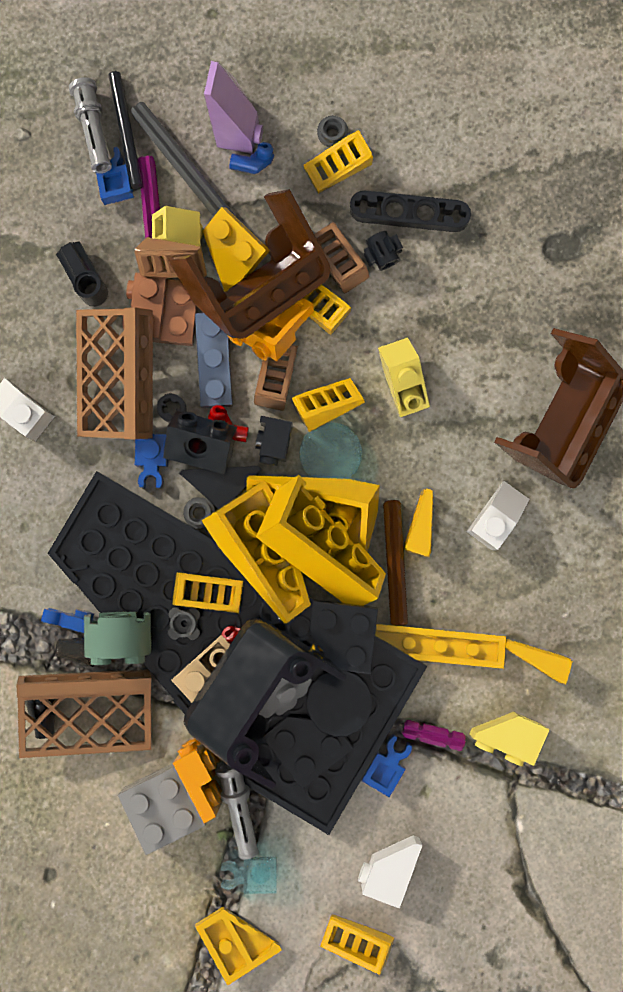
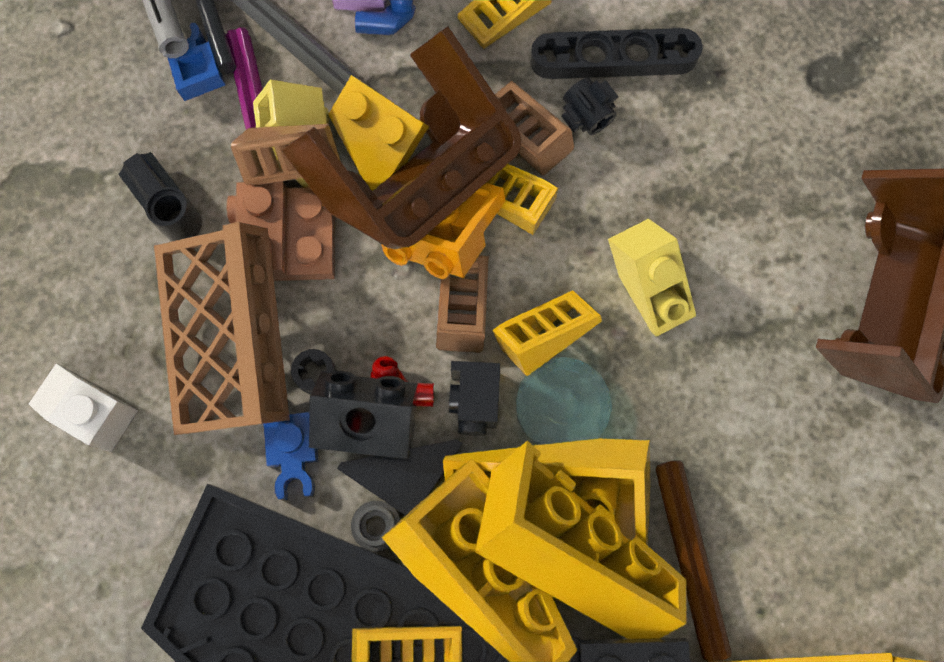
camera: 15 degrees left, 10 degrees down
(213, 363) = (367, 296): sand blue plate -> none
(420, 530) = (722, 500): yellow slope -> none
(499, 516) = (836, 465): white slope -> none

